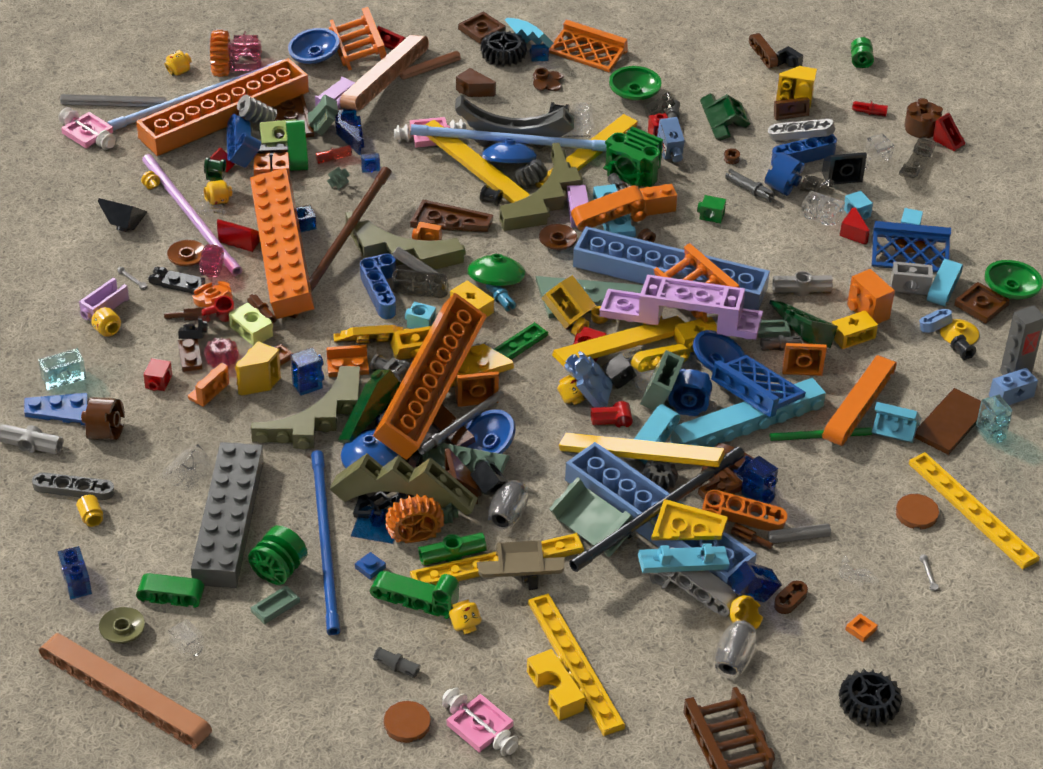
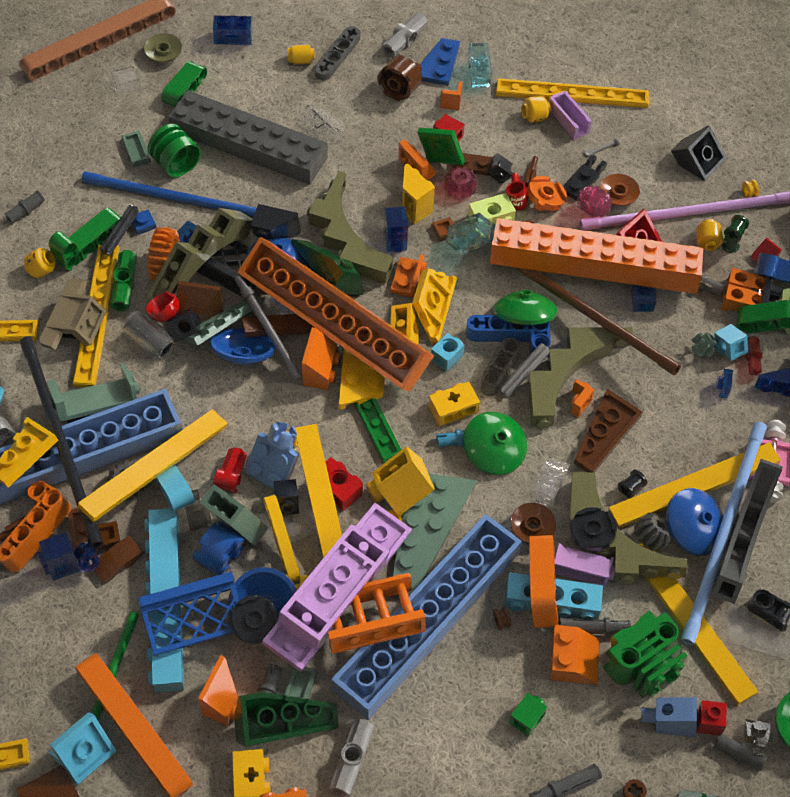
camera: 110 degrees right, 15 degrees up
(67, 306) = (579, 93): none -> yellow tile
(108, 382) = (451, 99): none -> orange panel
(193, 361) = (441, 146): none -> green plate
(290, 321) = (470, 233): none -> clear light blue brick
(328, 162) = (731, 342): none -> medium azure brick
(340, 451) = (275, 222): none -> black slope
(356, 276) = (525, 308): none -> green dish
(394, 365) = (382, 305): dark grey connector -> none
(400, 568) = (119, 230): none -> black axle
(484, 484) = (163, 307): none -> red hair
(518, 233) = (550, 482): none -> clear brick
(552, 195) = (593, 529): none -> black tile
(739, 351) = (253, 619): none -> black tile

